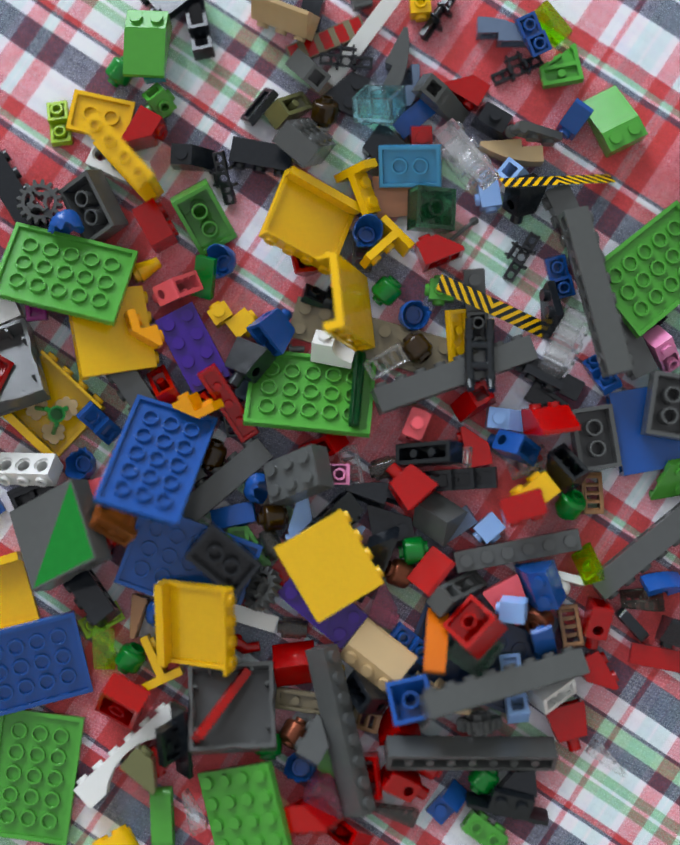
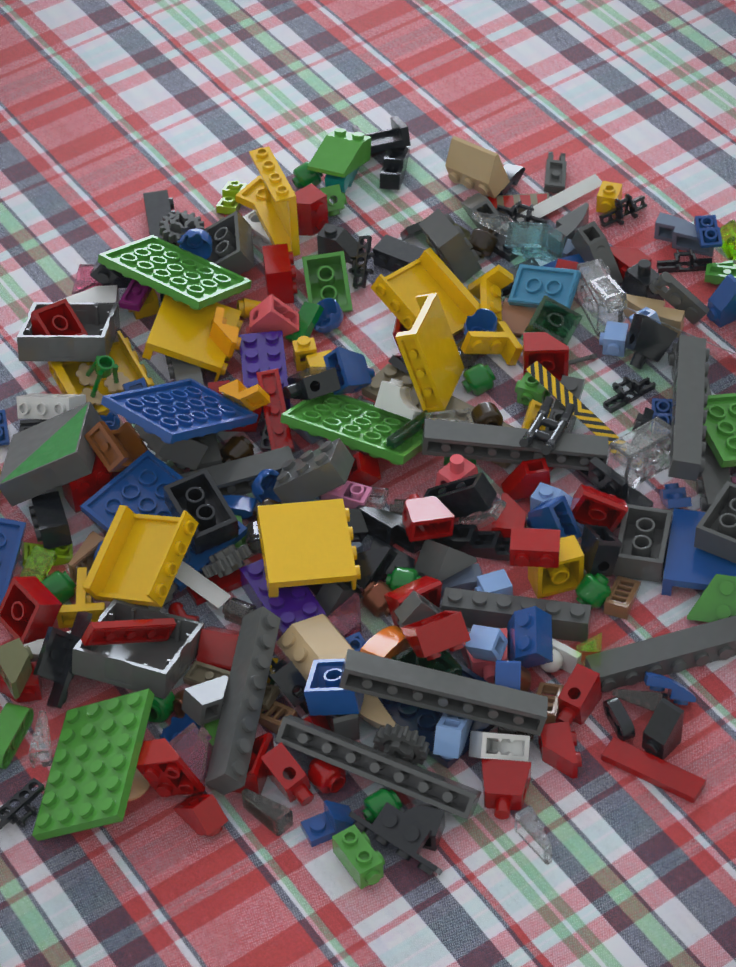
camera: 20 degrees right, 40 degrees down
(337, 82) = (495, 222): none -> clear slope
(414, 315) = (500, 398): blue hair -> none

